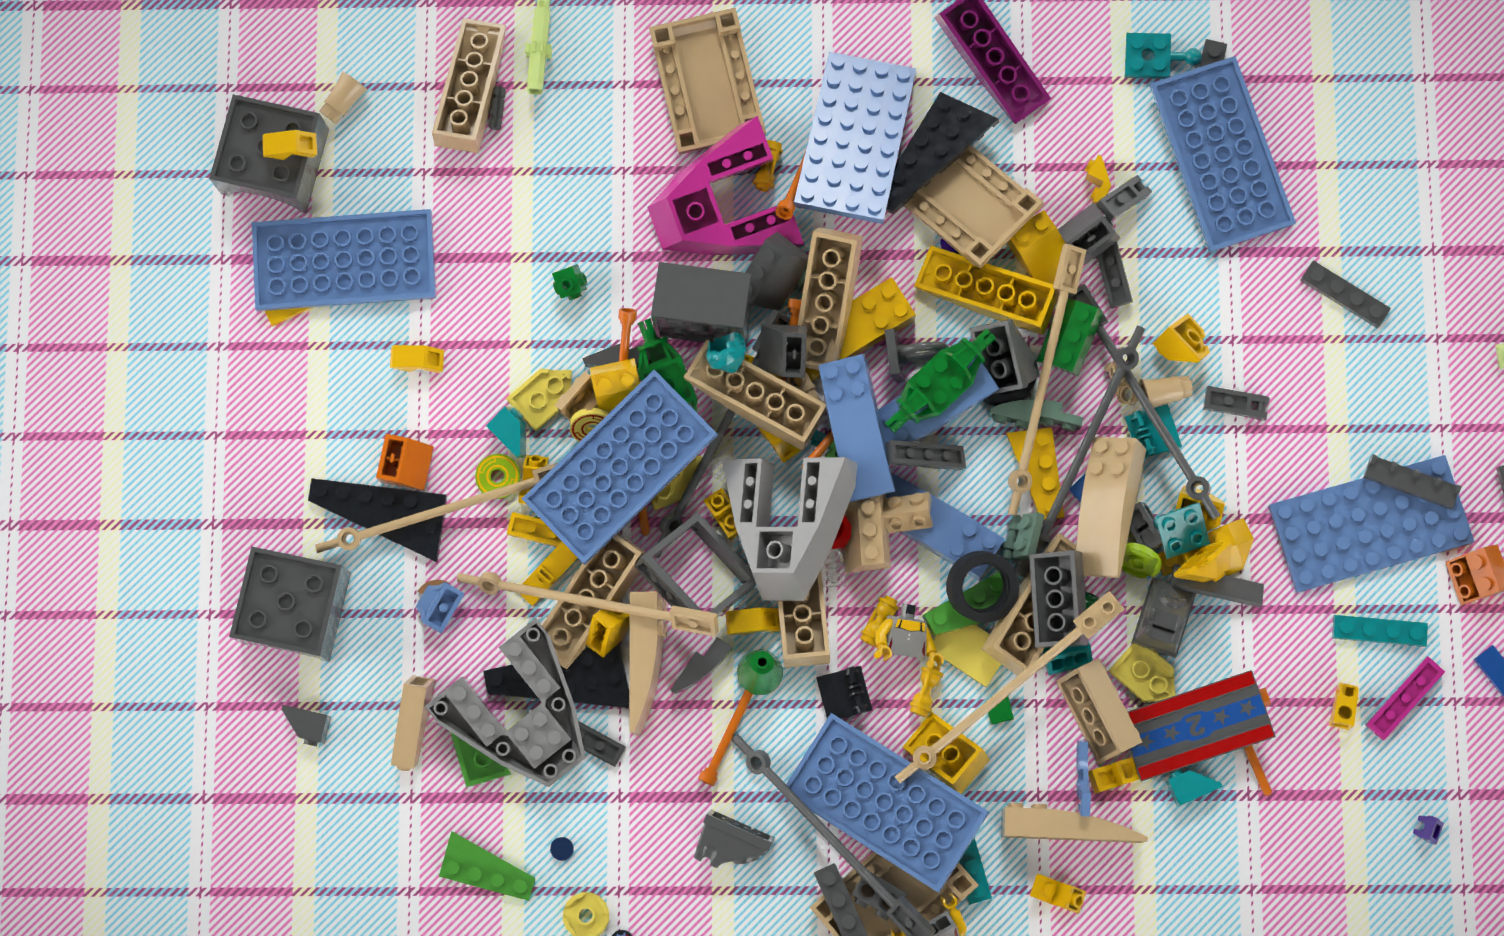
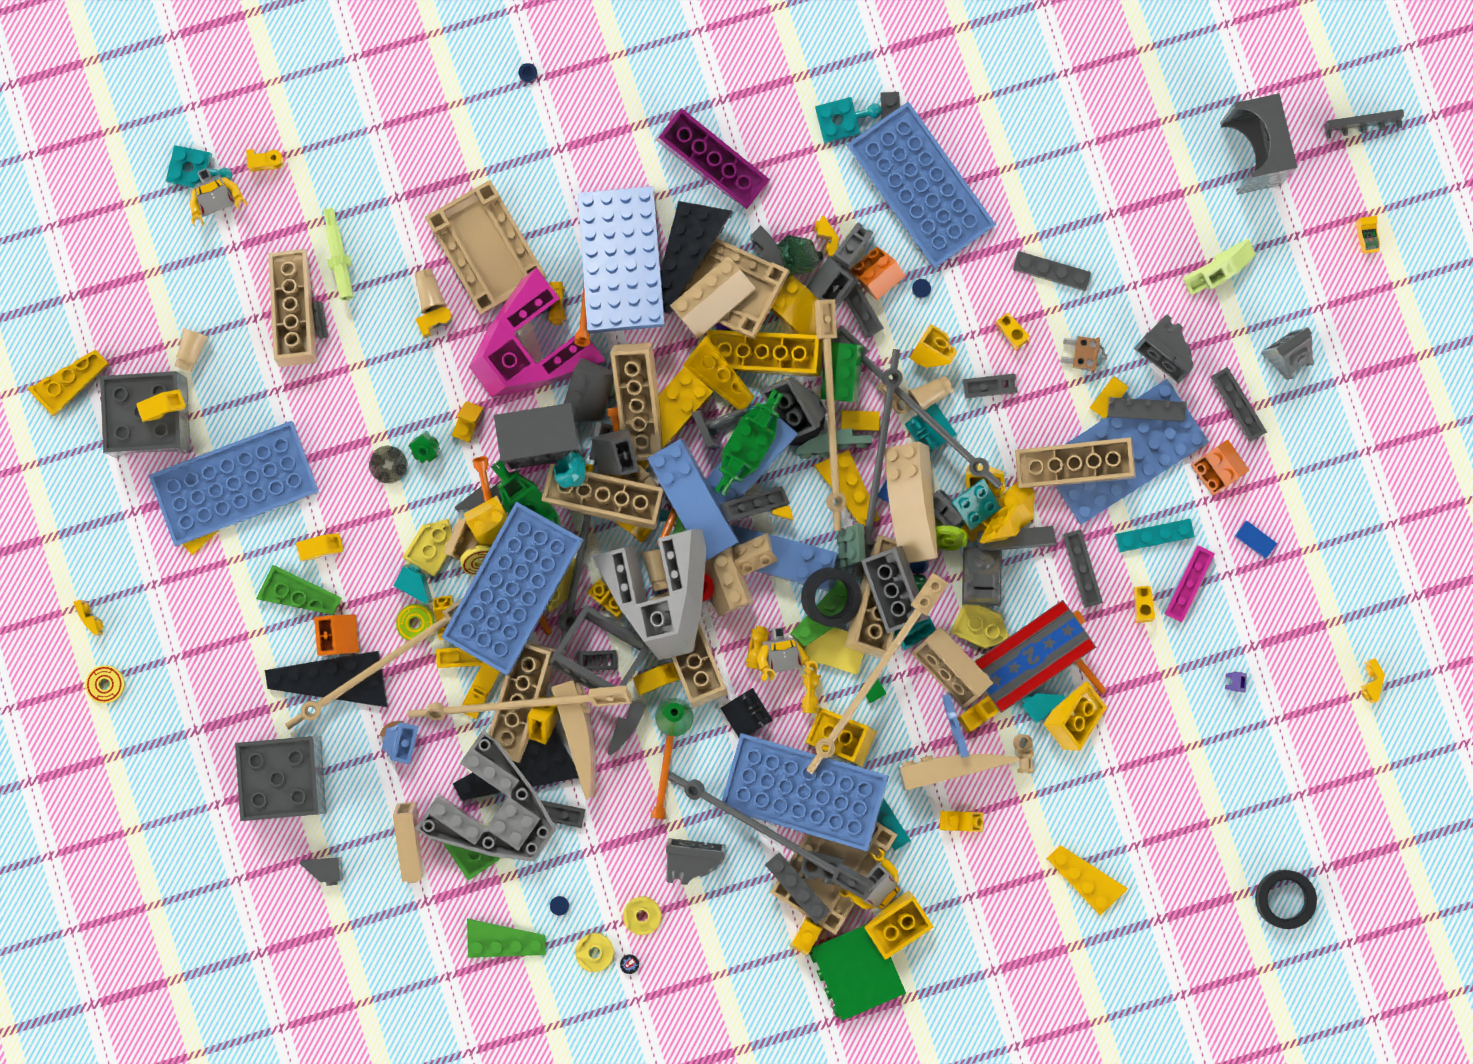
camera: 20 degrees left, 5 degrees up
(116, 435) = (94, 679): none -> light yellow tile
(136, 367) = (93, 623): none -> yellow slope
(191, 97) = (68, 382): none -> yellow wing
(373, 400) = (293, 591): none -> bright green wing
(513, 282) = (383, 474): none -> clear smoke plate
(624, 144) = (434, 319): none -> yellow leg
(626, 269) = (467, 421): none -> yellow slope
(628, 113) = (428, 291): none -> tan plant
(643, 899) = (630, 915): none -> light yellow tile
(673, 568) = (613, 659): none -> dark grey slope
(789, 496) = (655, 569): none -> tan plant
(926, 296) = (716, 372): none -> yellow wing
(948, 208) = (713, 297): none -> tan slope
(955, 476) = (783, 512): none -> yellow slope
(1027, 171) = (768, 246): none -> dark grey slope
(1060, 190) = (799, 255): none -> clear green torso
(1075, 398) = (860, 420): none -> yellow tile
(1094, 584) = (919, 567): none -> dark blue tile
(1144, 238) = (877, 273): none -> orange slope
(1156, 837) = (1025, 754): none -> tan connector
(1188, 270) = (921, 288): none -> dark blue tile
(1227, 813) = (1075, 717): none -> yellow slope
(1280, 348) = (1012, 331): none -> yellow leg
(1284, 643) = (1082, 568): none -> dark grey plate
(1312, 518) = (1075, 463): none -> tan slope
(1359, 399) = (1086, 353): none -> medium nougat piece
(1380, 446) = (1114, 388): none -> yellow slope
(1455, 420) = (1167, 349): none -> dark grey piece

